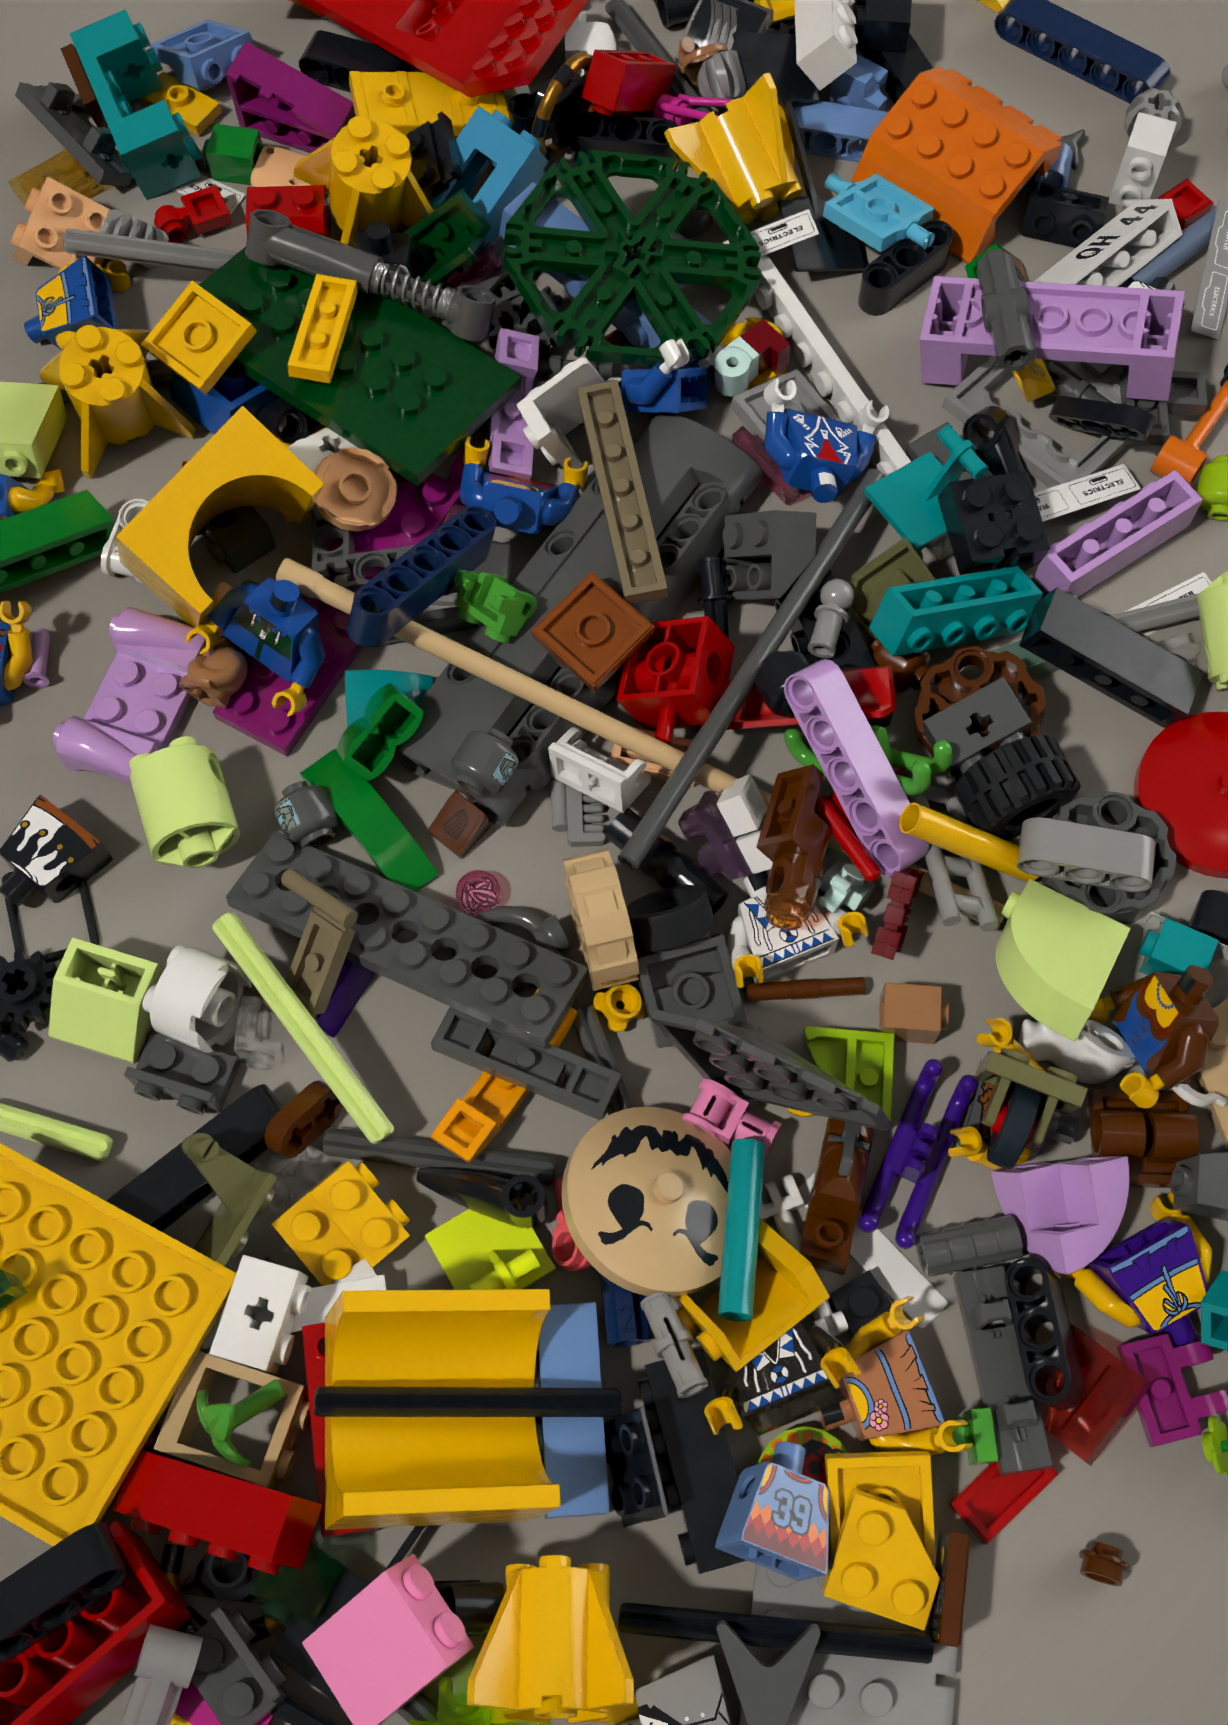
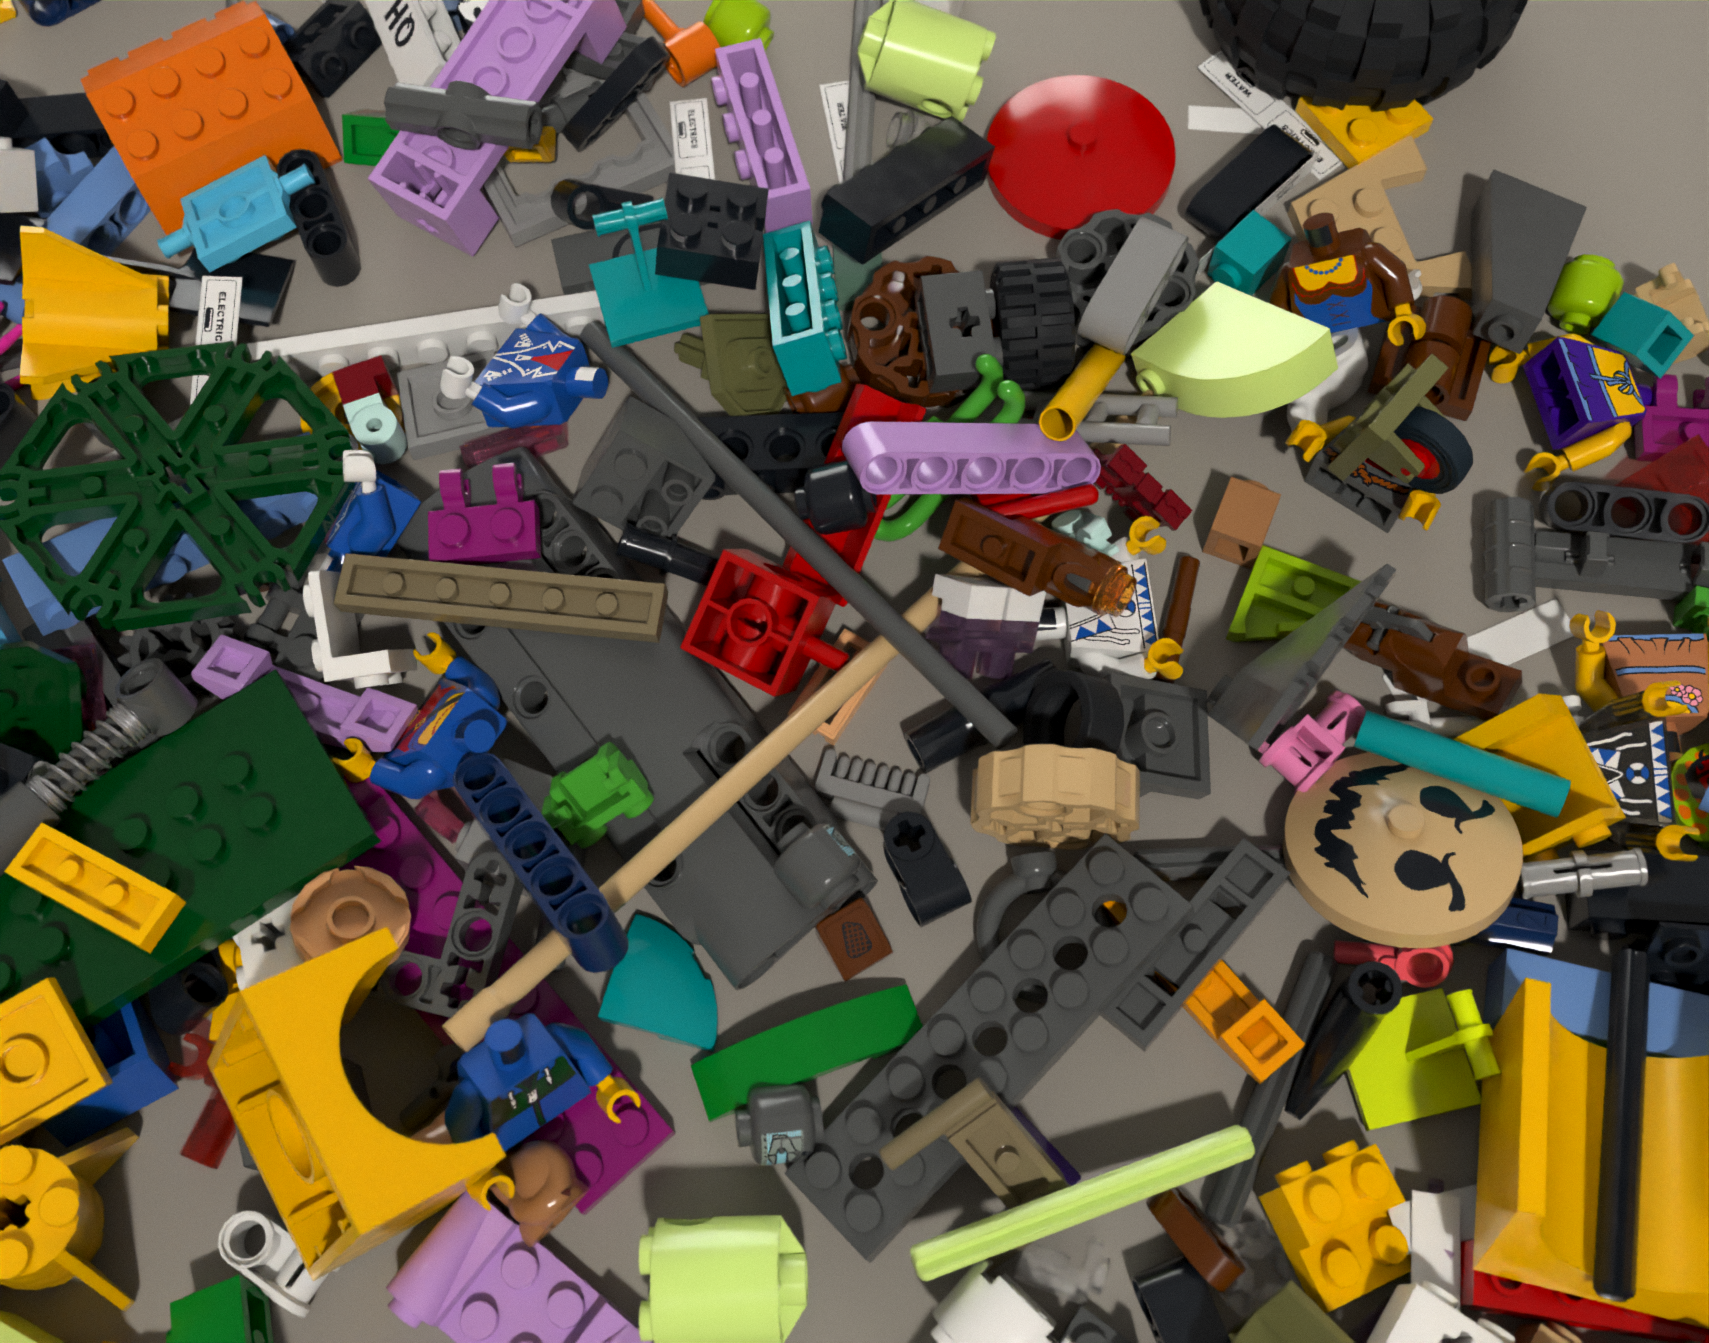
camera: 70 degrees left, 0 degrees up
(372, 740) = (712, 994): green brick -> none
(477, 892) = (949, 944): clear pink tile -> none
(521, 859) = (925, 876): none -> black piece
(593, 631) = (681, 689): dark orange plate -> none
(596, 773) = (852, 751): white hinge -> none
(632, 1003) = (1156, 814): yellow plate -> none
(671, 464) = (484, 532): none -> magenta plate
(831, 616) = (736, 418): light grey pin -> none
(860, 1301) = (1545, 674): black plate -> none
(917, 1154) = (1411, 572): dark purple piece -> none
(1065, 1208) = (1512, 445): lavender brick -> none

